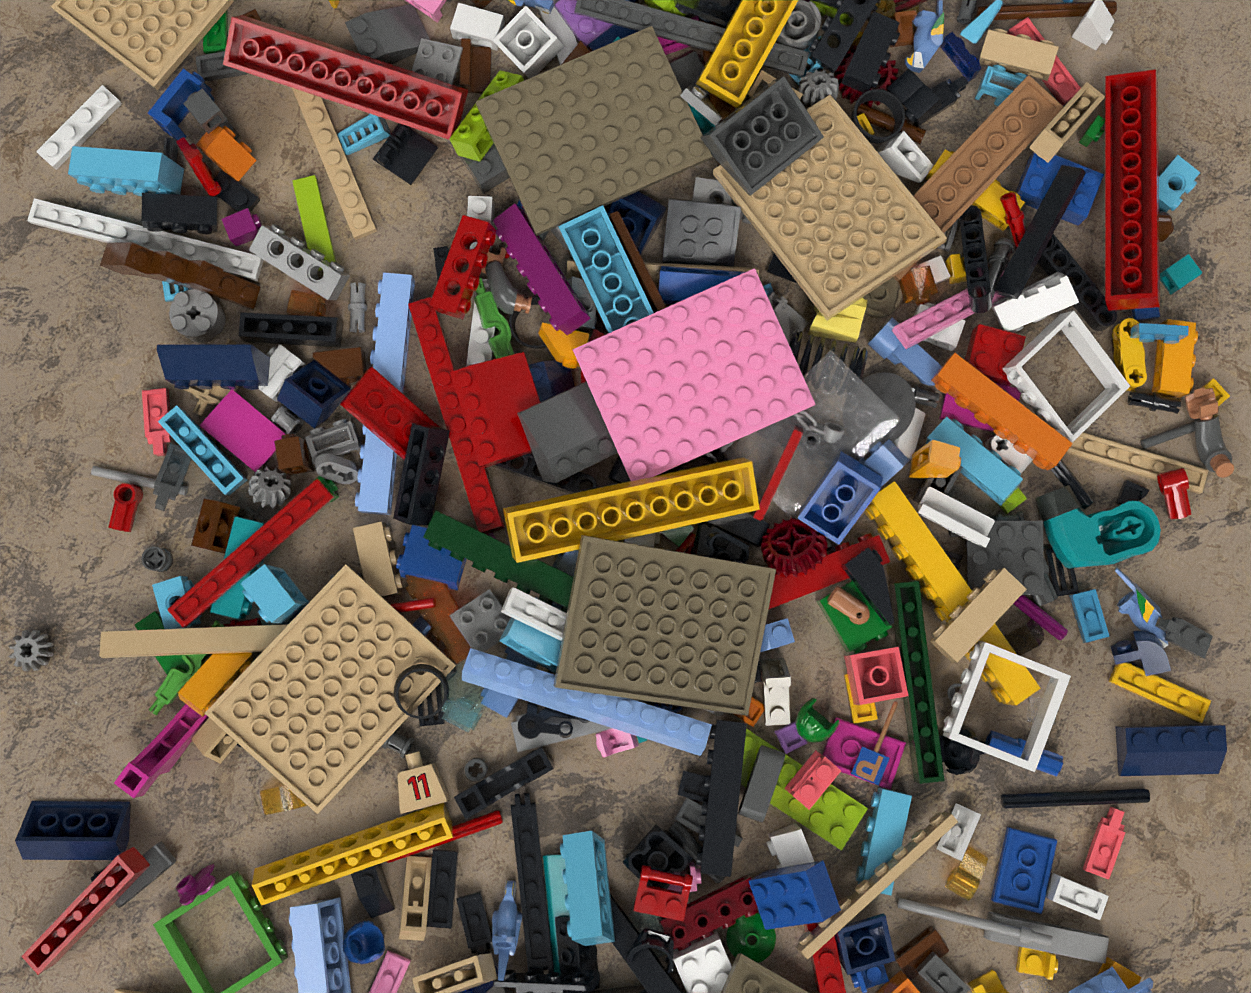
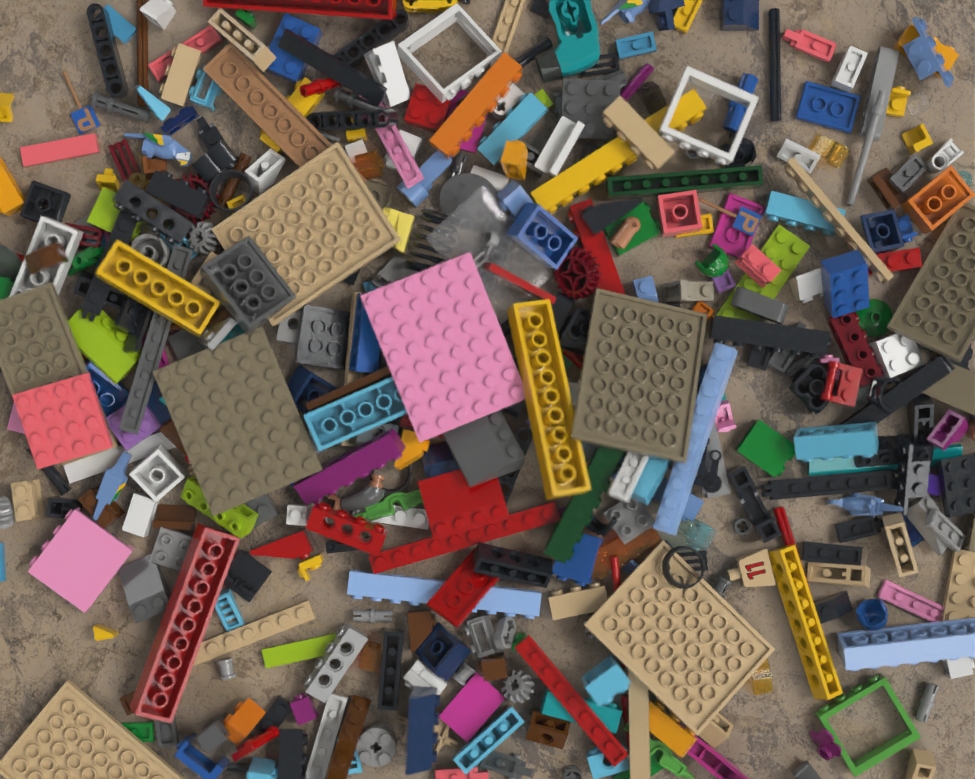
camera: 90 degrees left, 5 degrees up
(291, 133) = (226, 668): none -> light grey bush
(421, 232) = (312, 563): none -> yellow bracket
(440, 202) = (287, 547): none -> red slope
(472, 581) = (601, 529): none -> black helmet
(576, 798) = (766, 448): none -> green brick

